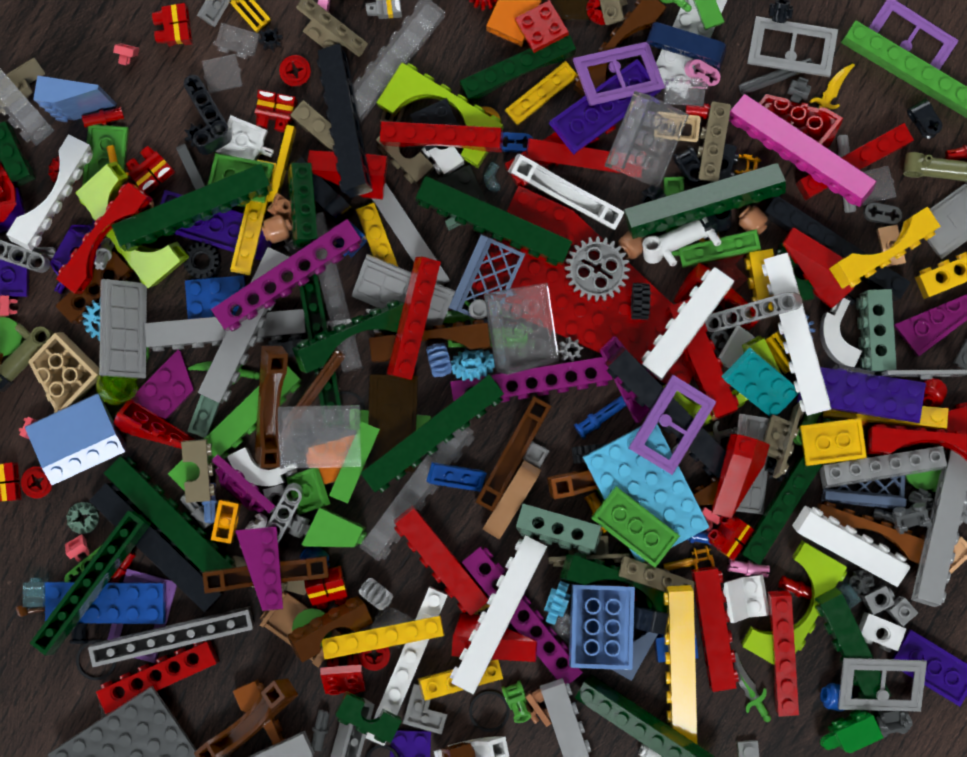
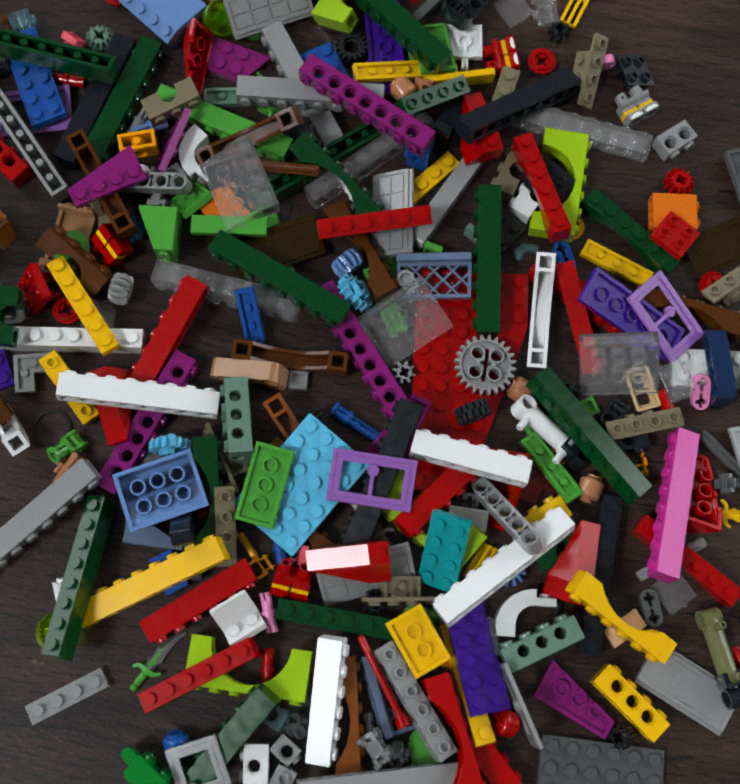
camera: 60 degrees right, 10 degrees down
(456, 269) = (430, 247): none -> bright green tile
(893, 484) = (401, 718): none -> red piece

